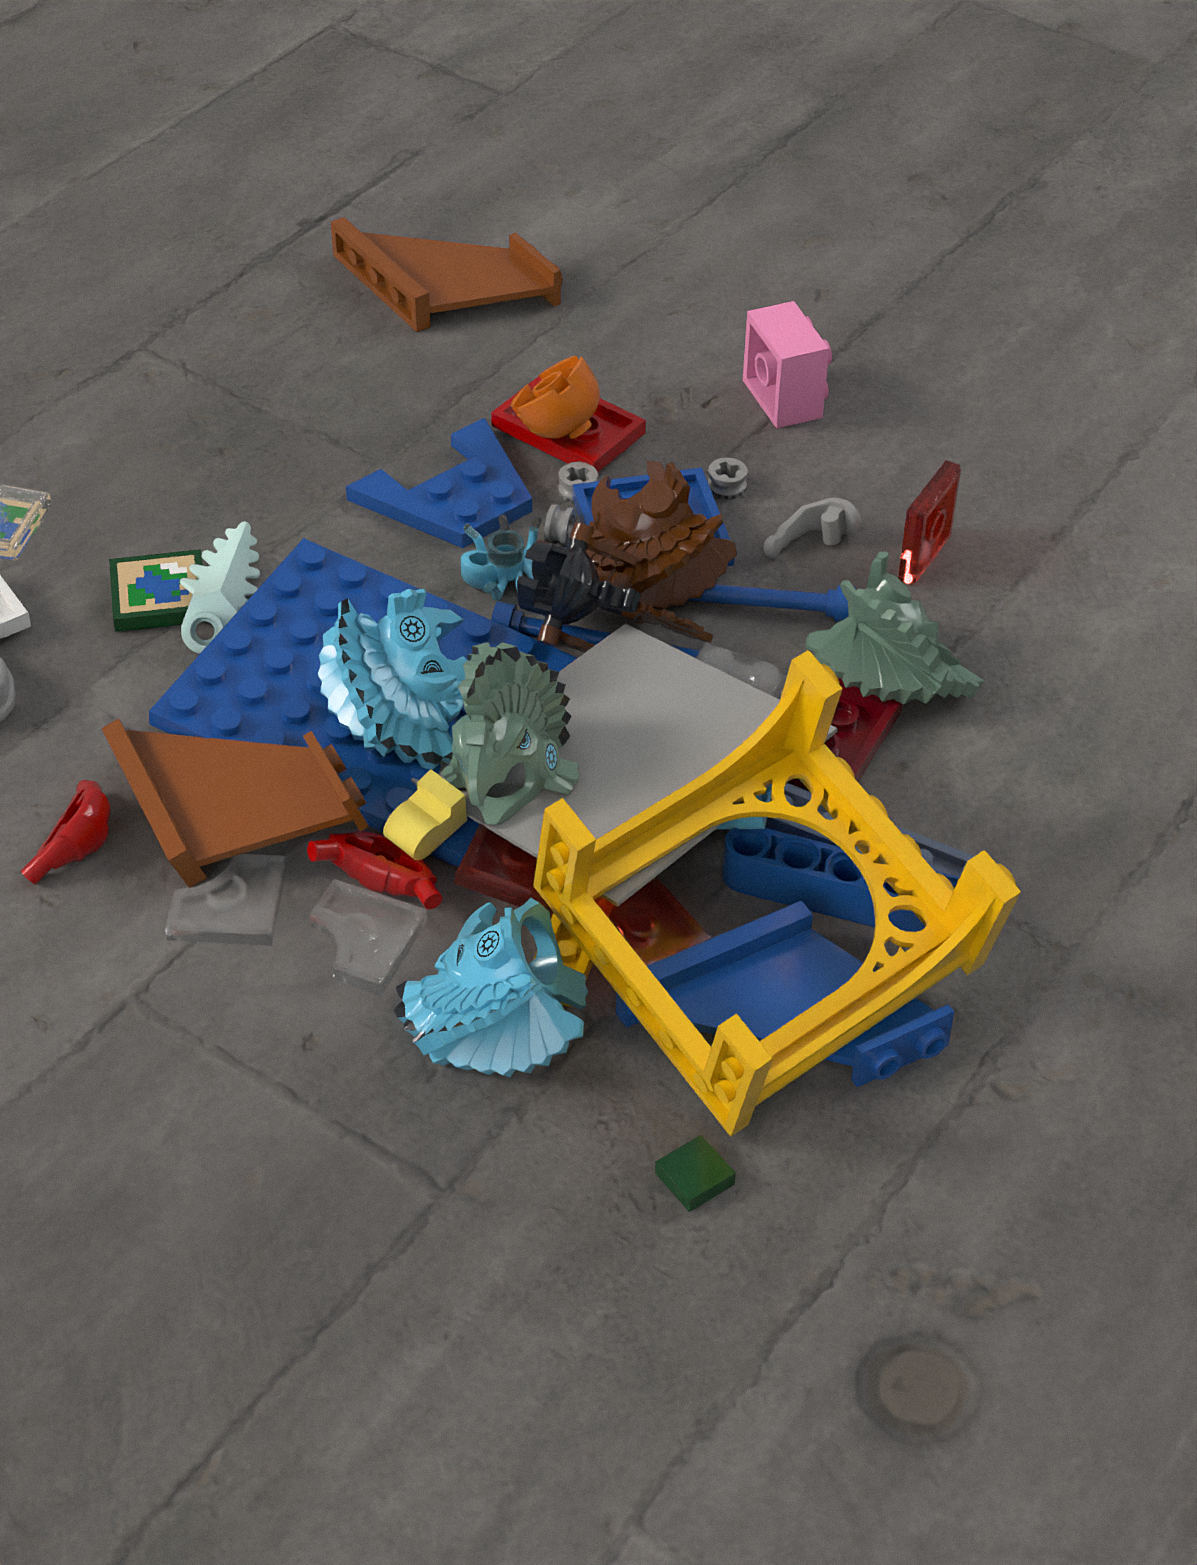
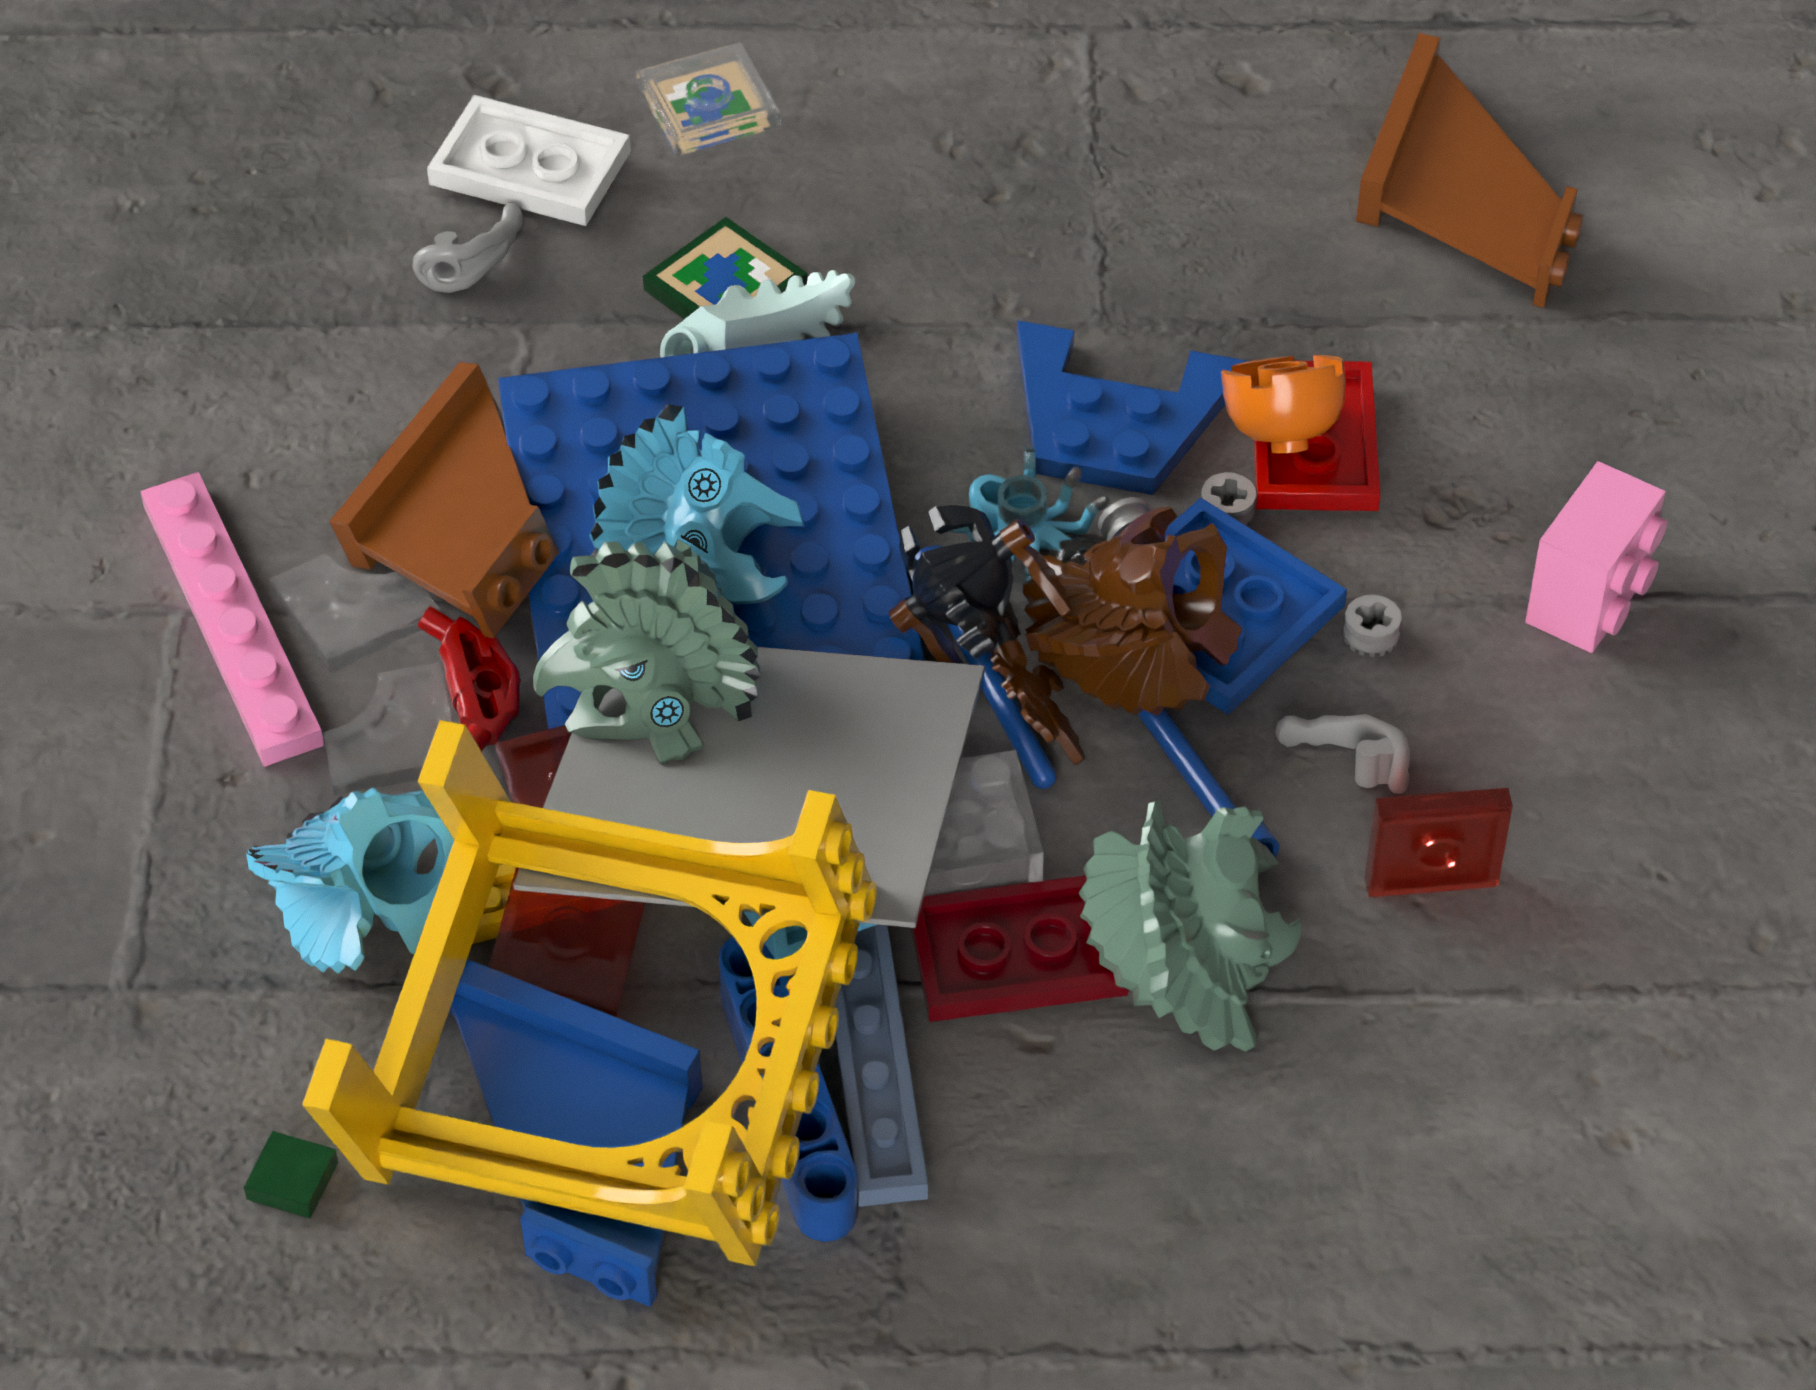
camera: 55 degrees right, 5 degrees up
(76, 834) = (337, 437): red piece -> none
(170, 968) = (232, 620): none -> bright pink plate
(426, 817) = (513, 675): light yellow leg -> none

